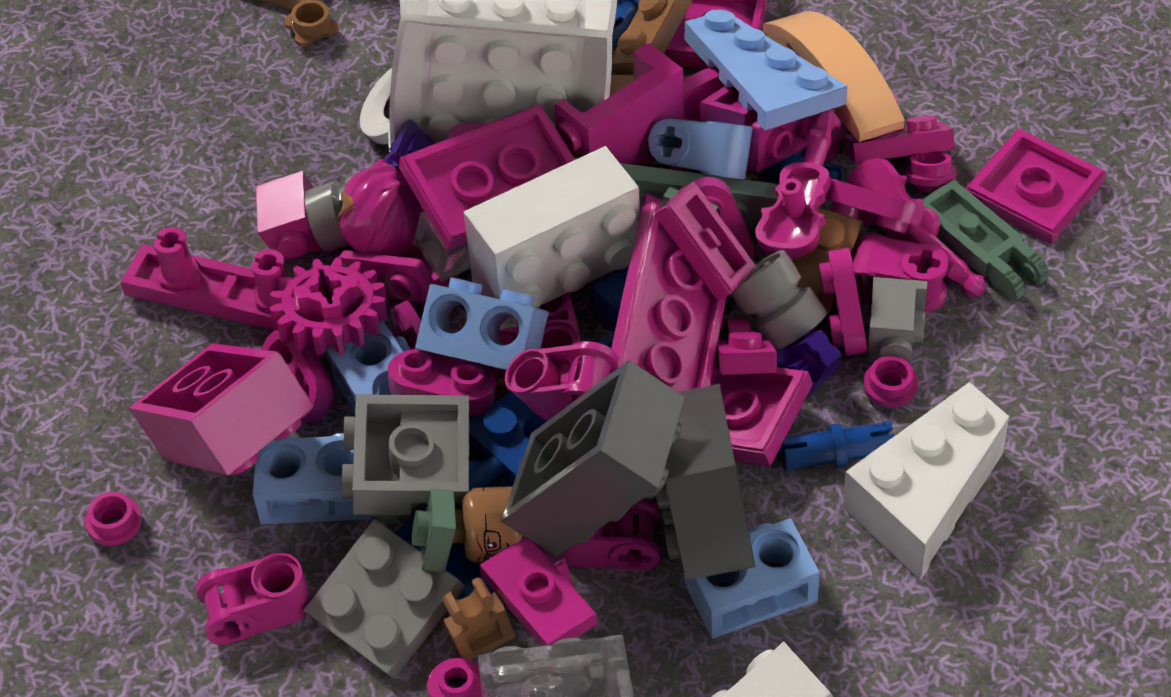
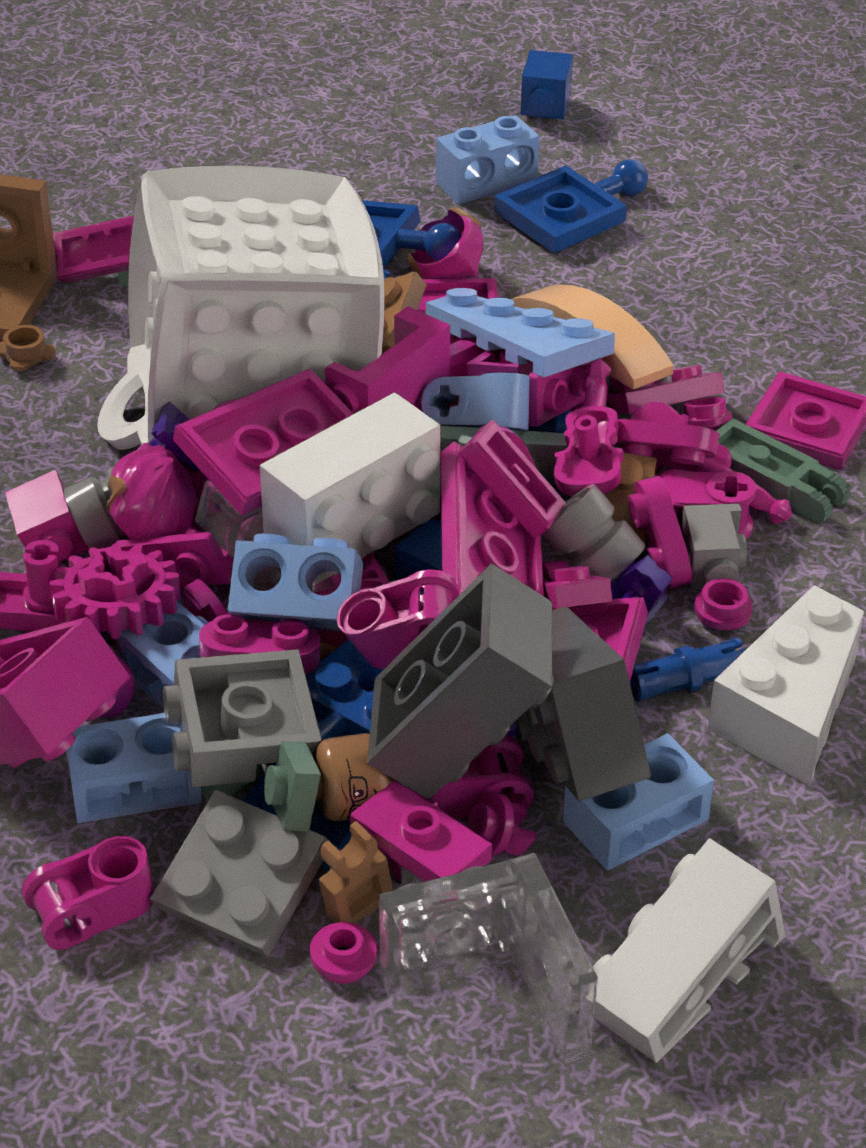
camera: 15 degrees left, 10 degrees down
(616, 581) = (498, 821): none -> dark pink plate

